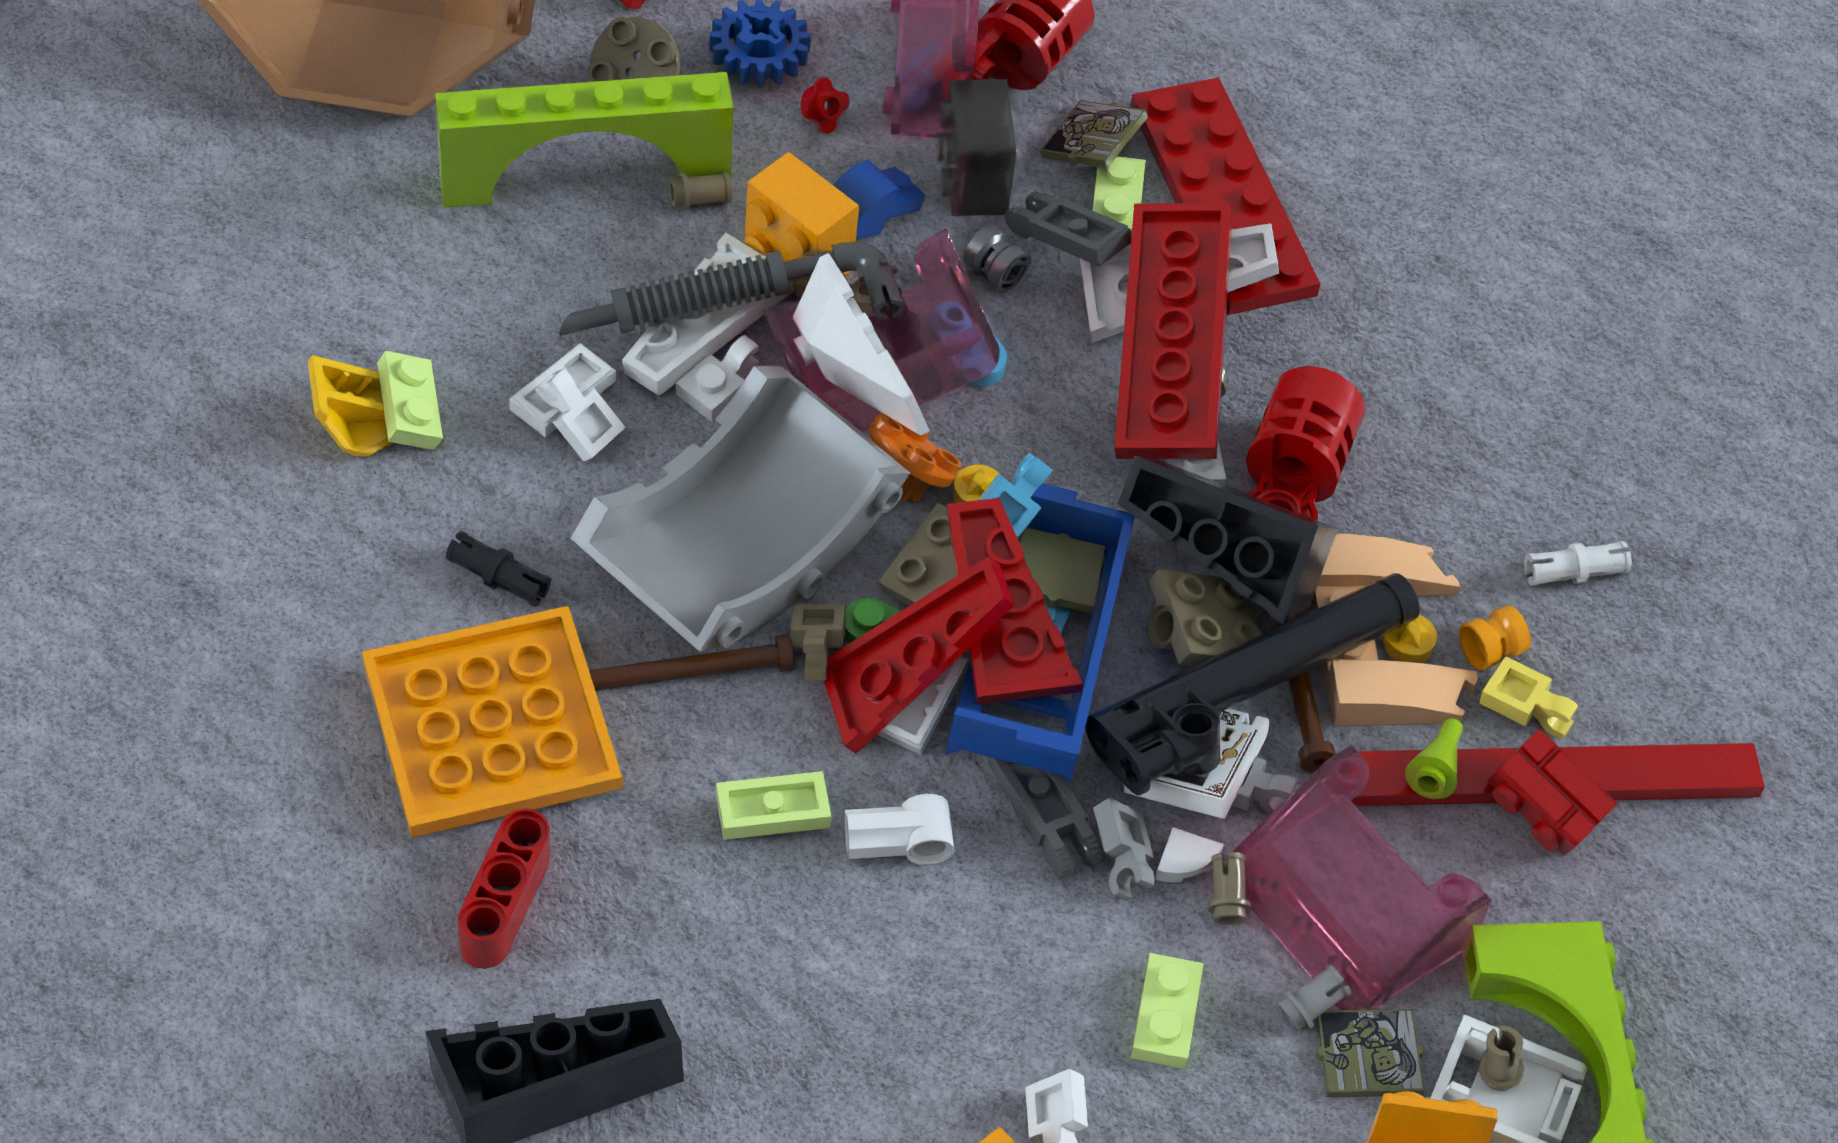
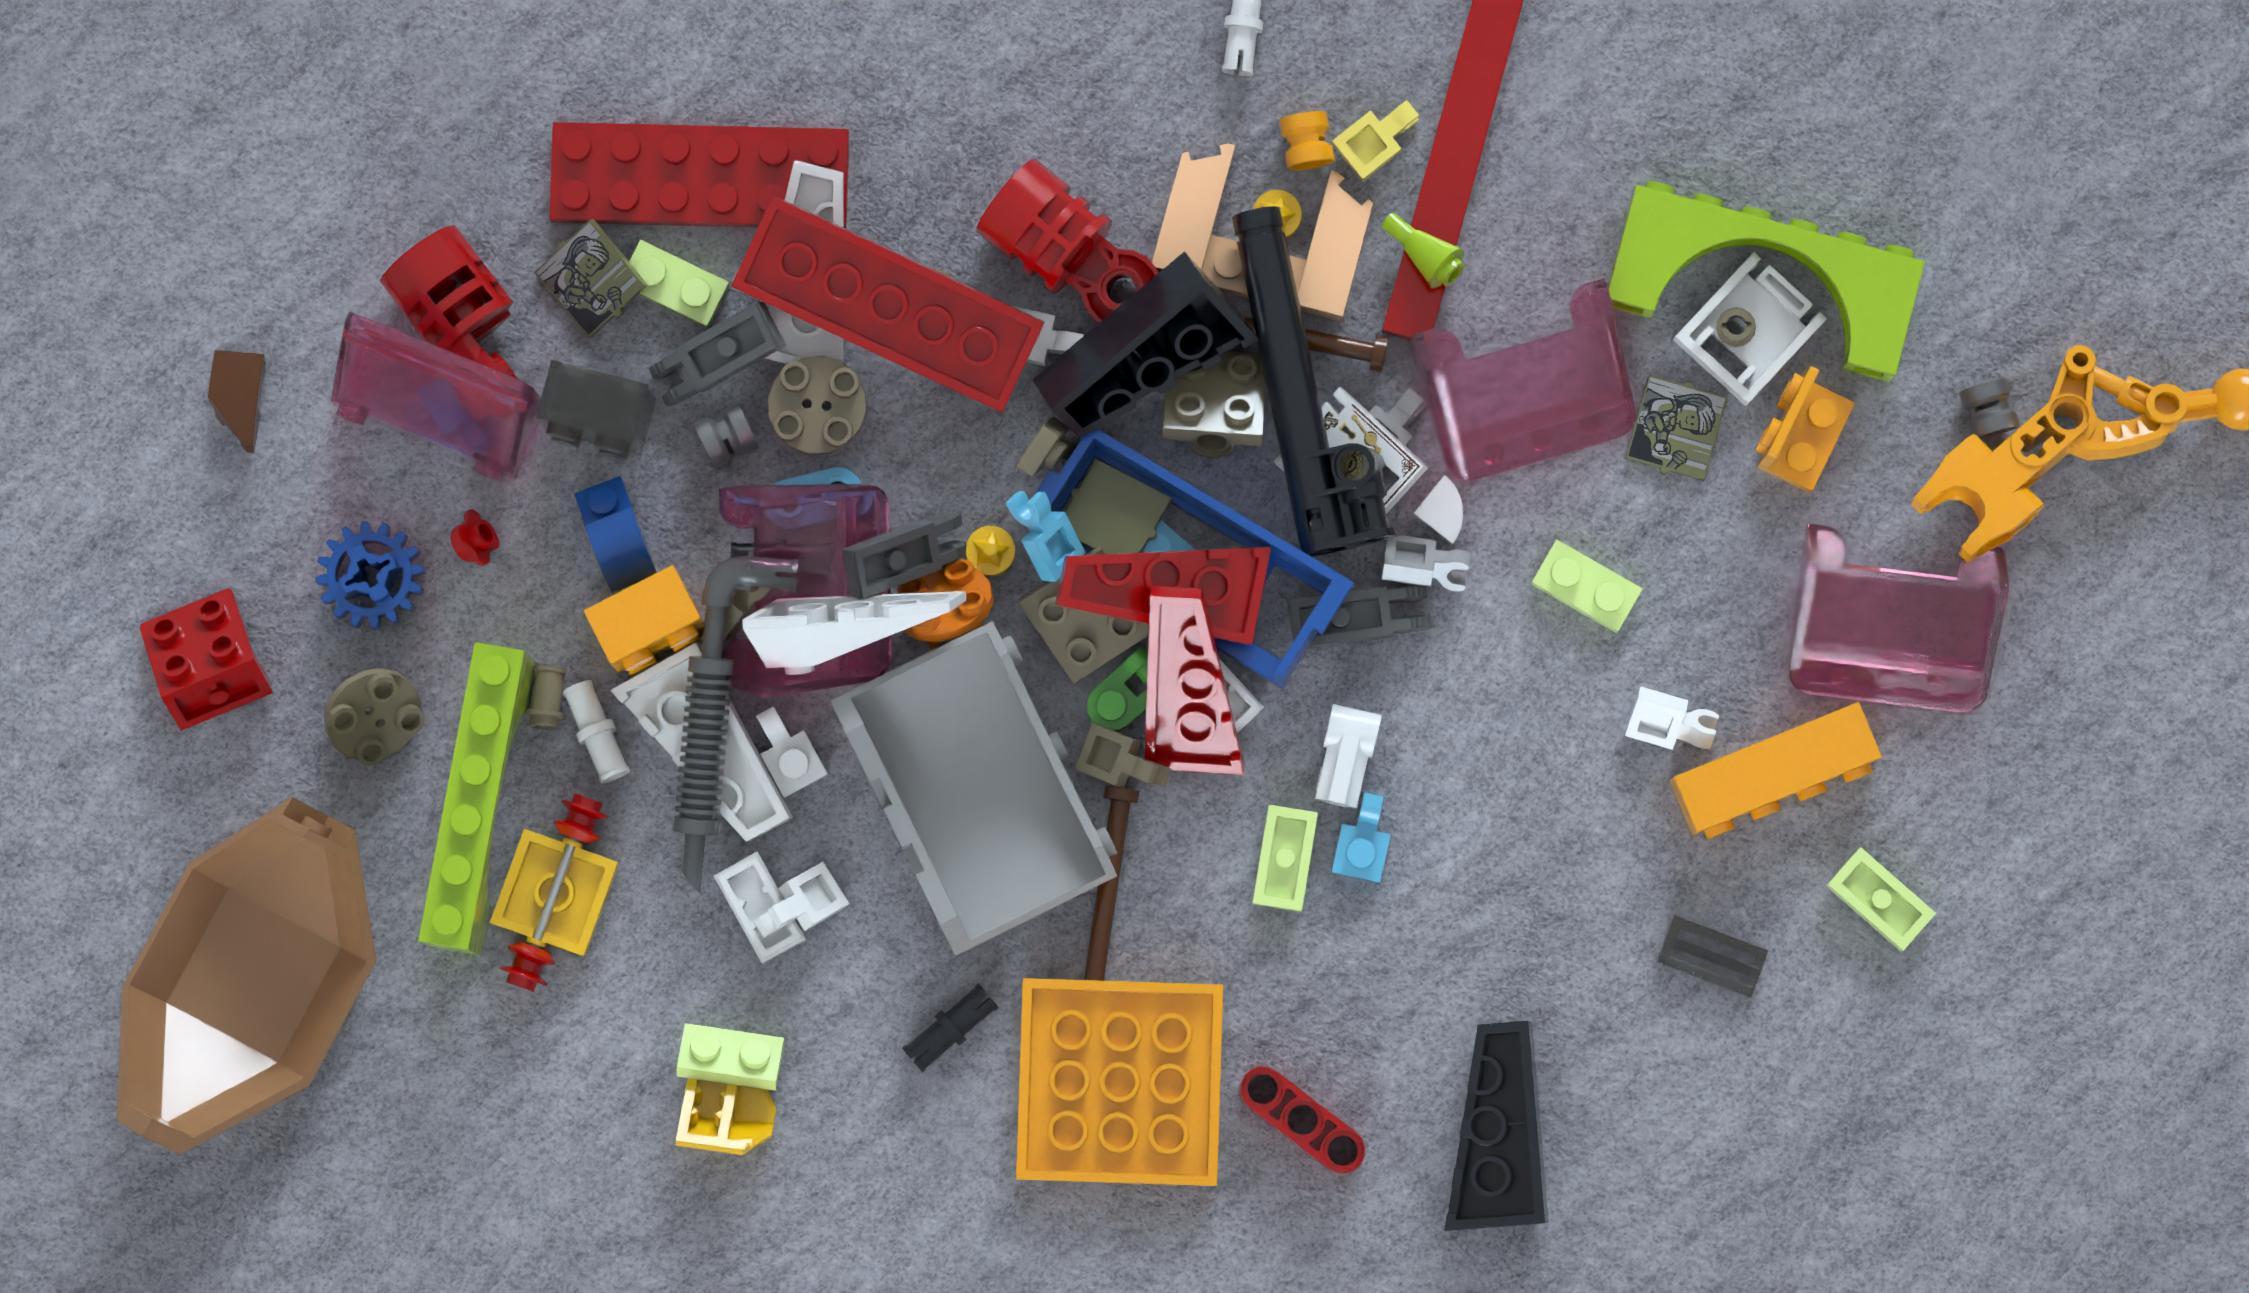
camera: 65 degrees left, 30 degrees up
(520, 234) = (554, 892): none -> yellow plate
(682, 231) = (596, 731): none -> white pin
(810, 874) = (1361, 848): none -> medium azure plate
(943, 395) = (901, 555): none -> dark grey hinge
(1035, 316) = (821, 382): none -> dark tan plate
(1096, 479) = (1048, 447): none -> dark tan plate
(1229, 893) = (1492, 488): dark tan pin -> none
(1314, 998) = (1620, 458): light grey pin -> none
(1550, 793) = (1492, 168): red brick -> none

